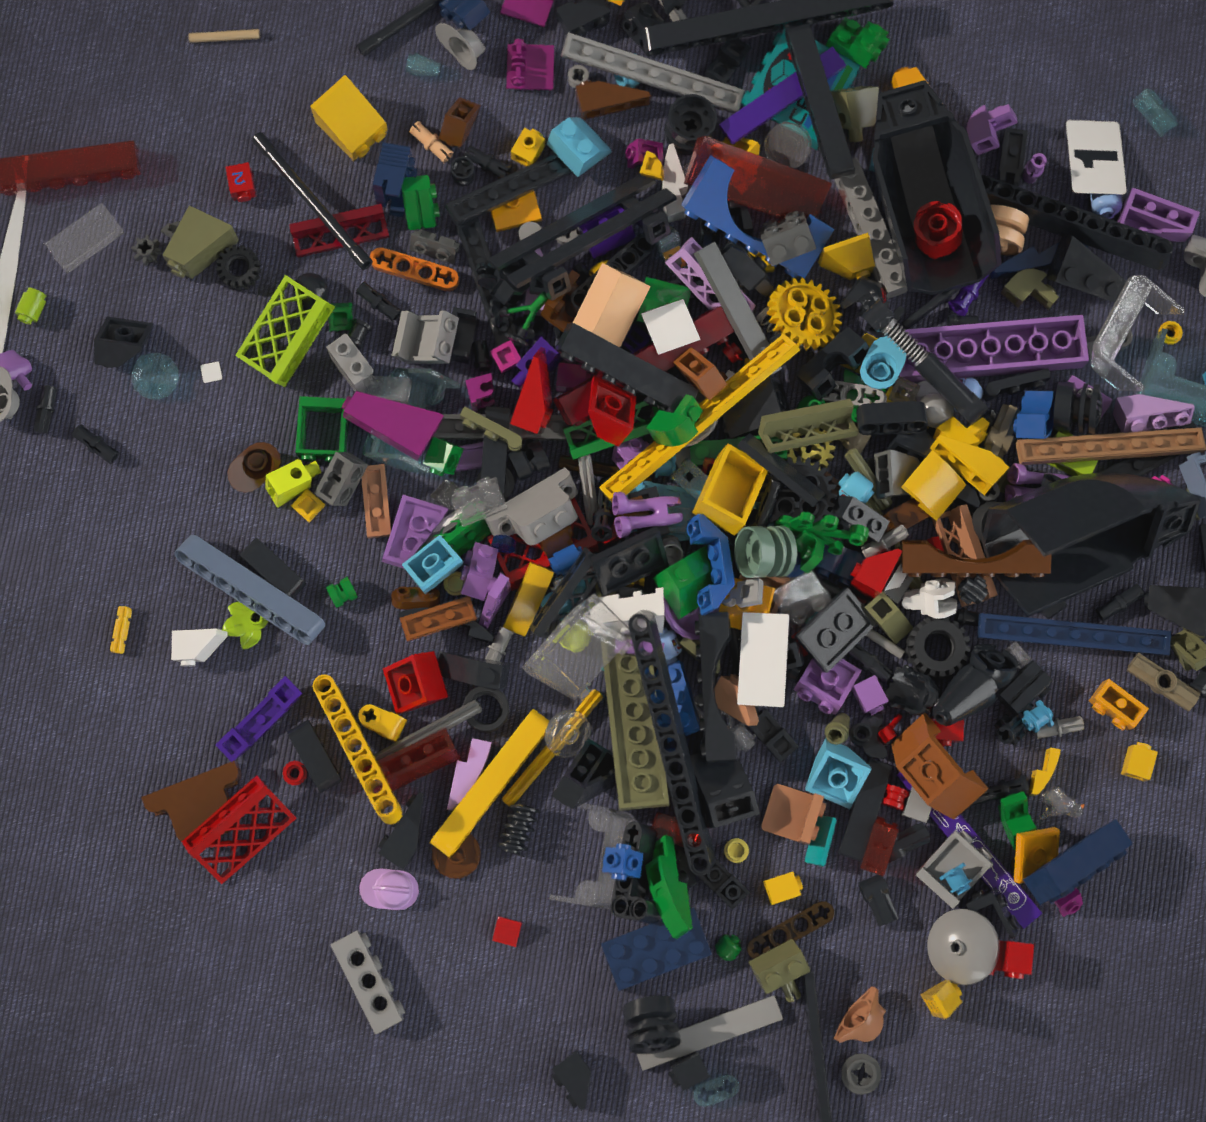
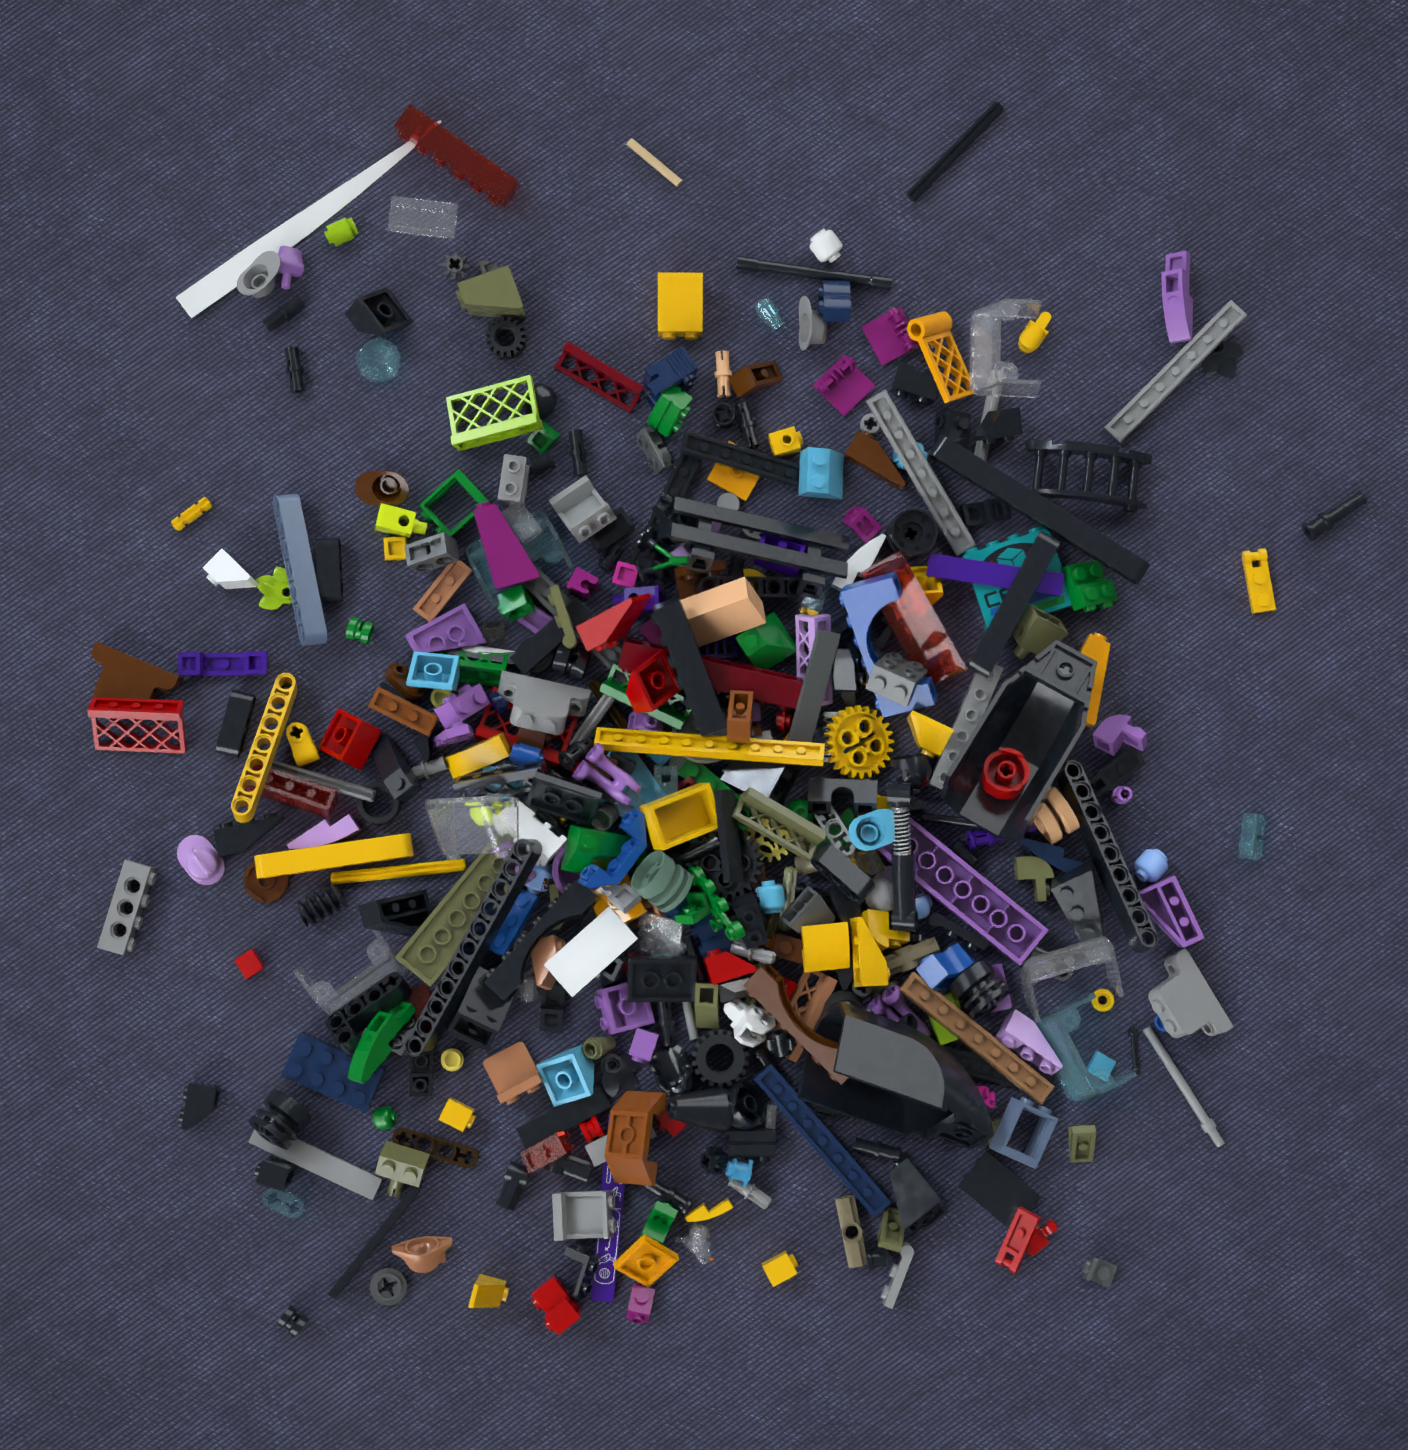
camera: 45 degrees right, 5 degrees up
(211, 372) = (419, 393): white sticker -> none
(241, 182) = (564, 279): red brick -> none
(287, 773) = (206, 722): red plate -> none
(355, 251) = (590, 403): black piece -> none
(415, 266) = (622, 454): orange beam -> none
(478, 501) = (507, 657): clear bracket -> none
(567, 733) = (415, 872): clear tile -> none
(622, 862) = (362, 995): blue brick -> none
(652, 167) = (855, 538): yellow tile -> none
(670, 326) = (752, 664): white sticker -> none
(676, 427) = (686, 739): green brick -> none
(788, 144) = (965, 613): clear tile -> none
(818, 850) = (506, 1113): teal slope -> none
(887, 733) = (629, 1081): red hand -> none
(957, 879) = (576, 1224): dark azure brick -> none
(977, 944) = (545, 1278): light grey dish -> none
(1078, 863) = (666, 1293): dark blue brick -> none
(1096, 157) = (1174, 828): white sticker -> none
(1118, 705) = (803, 1216): light orange brick -> none

